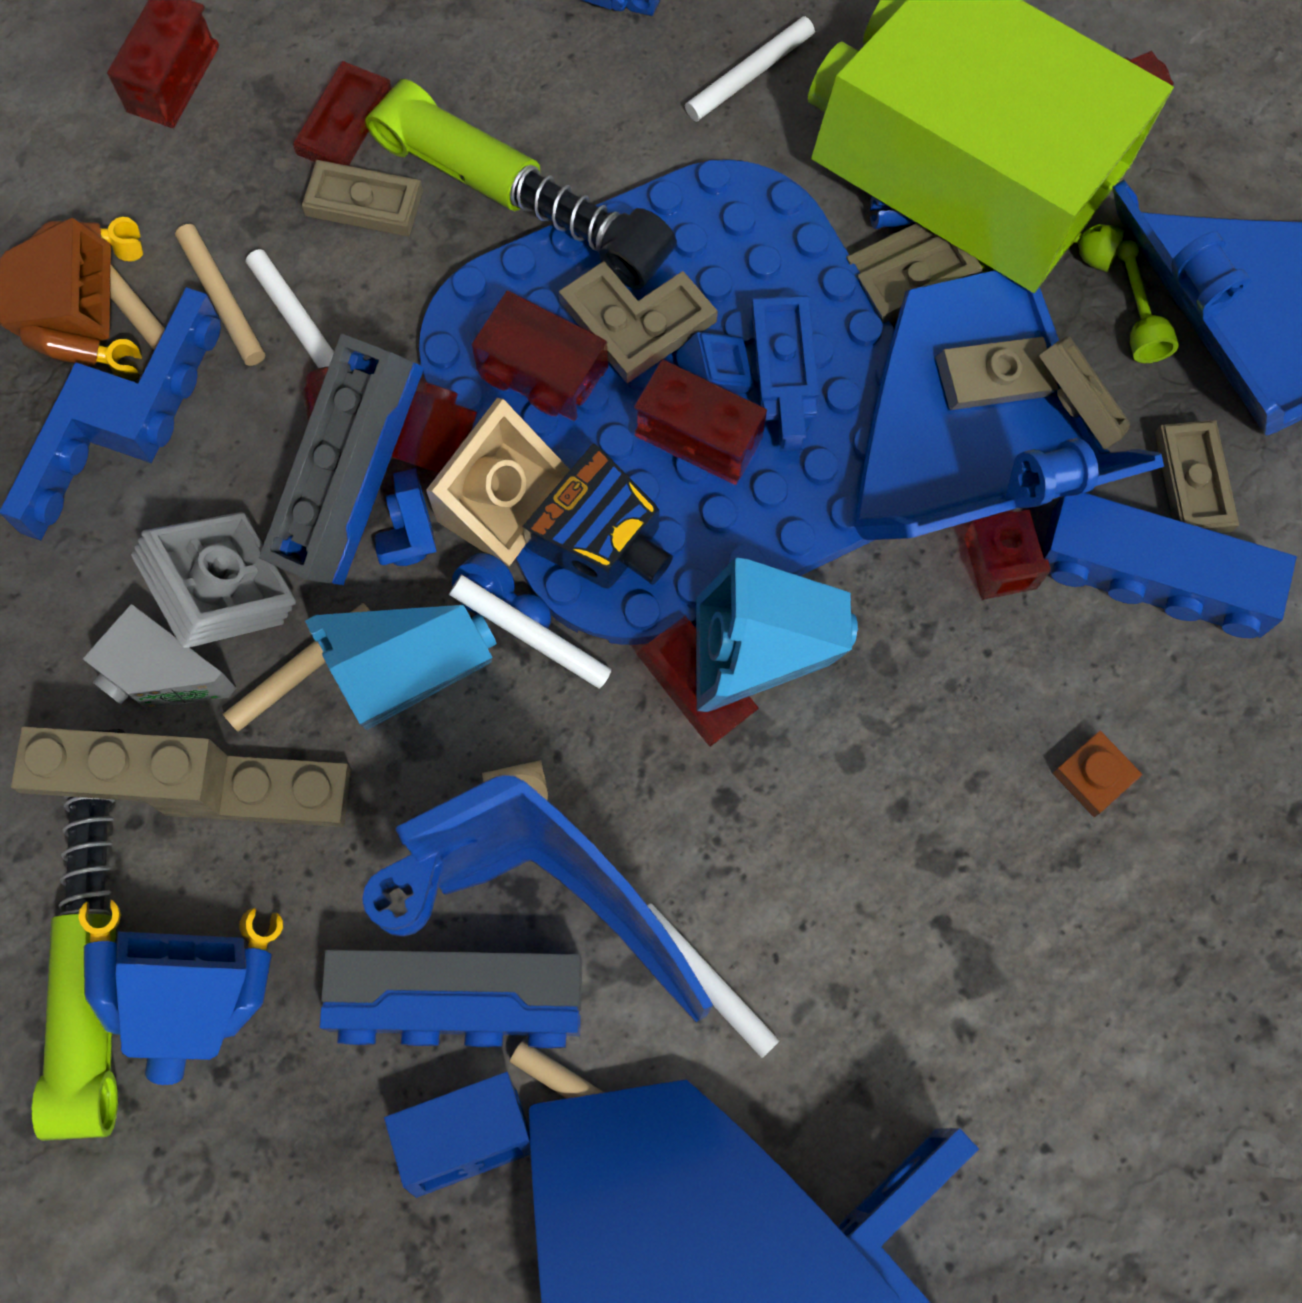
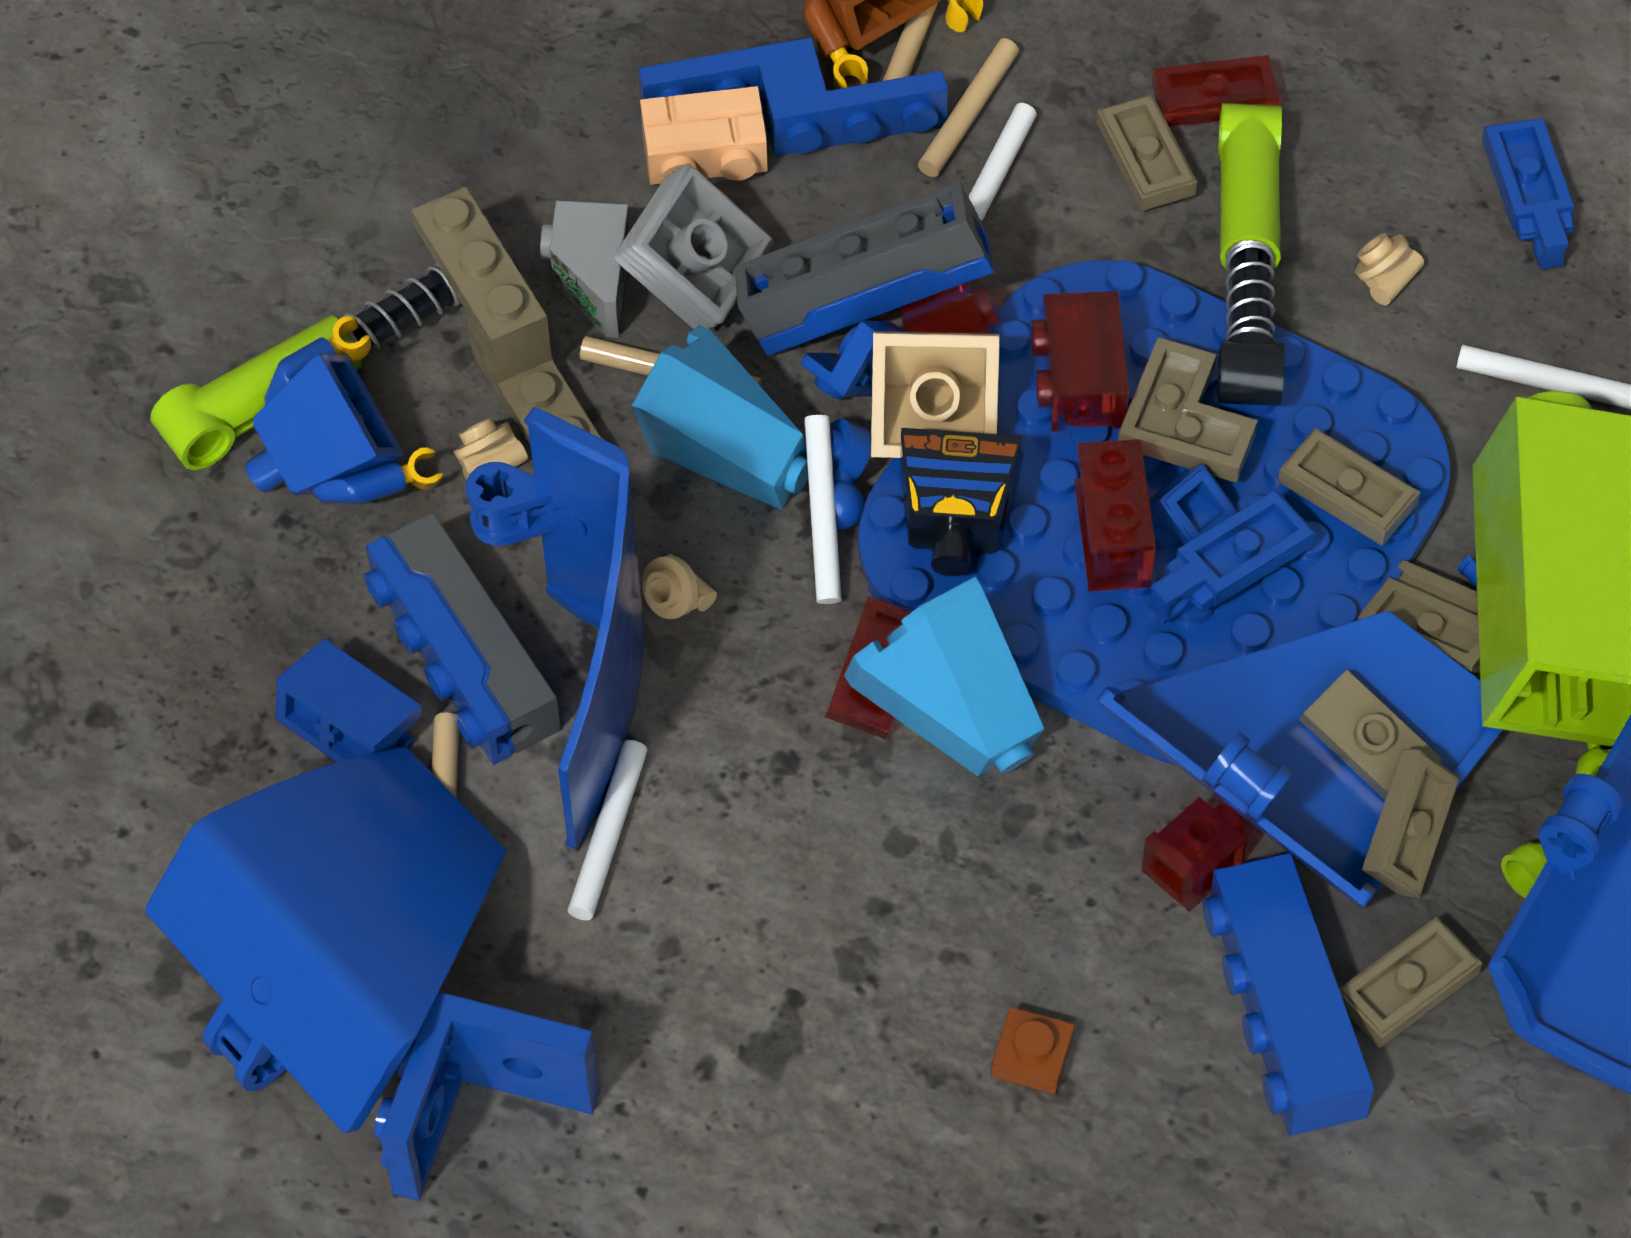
camera: 60 degrees right, 15 degrees down
(99, 504) = (711, 130): none -> light nougat brick
(278, 862) = (489, 444): none -> tan plate
(582, 107) = (1387, 266): none -> tan plate
(777, 248) = (1349, 486): none -> dark tan plate

